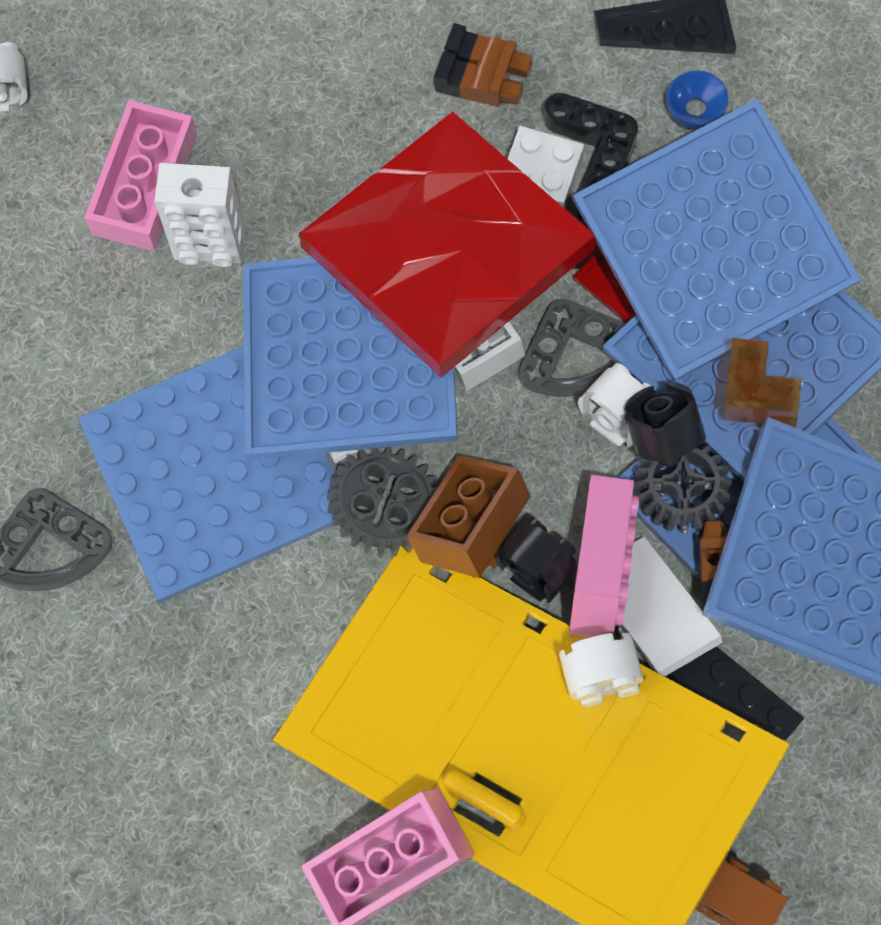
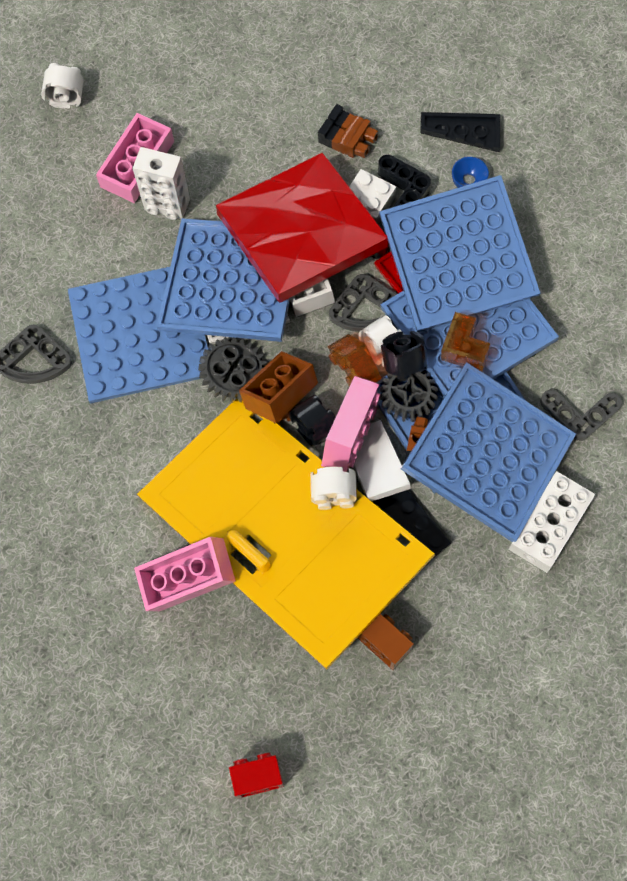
camera: 10 degrees right, 0 degrees up
(580, 445) = (354, 359): none -> clear orange brick

